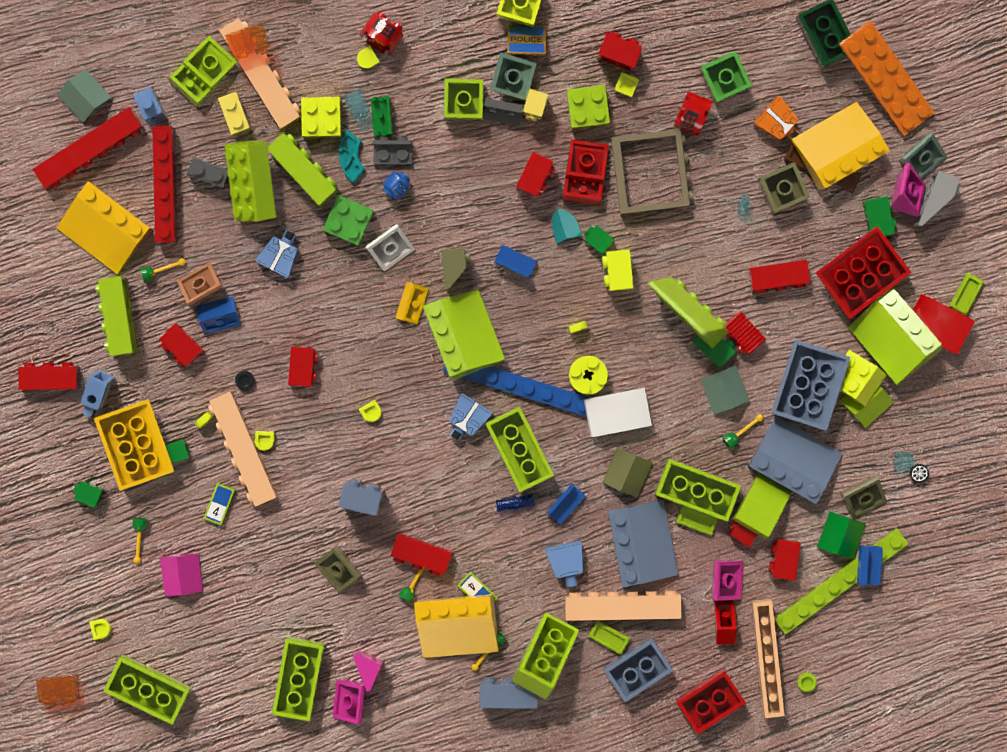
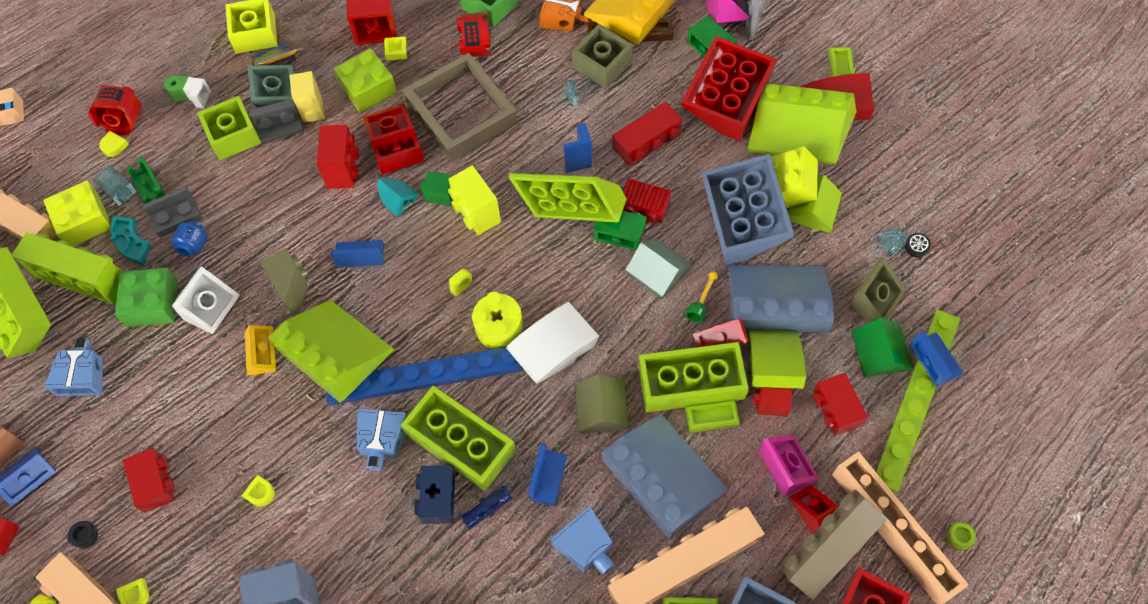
camera: 25 degrees left, 25 degrees down
(440, 32) = (188, 89): none -> leg
(486, 489) = (442, 507): none -> dark blue brick
(718, 649) = (833, 544): none -> dark tan brick
(722, 268) = (578, 153): none -> blue panel
(734, 471) = (722, 334): none -> plate

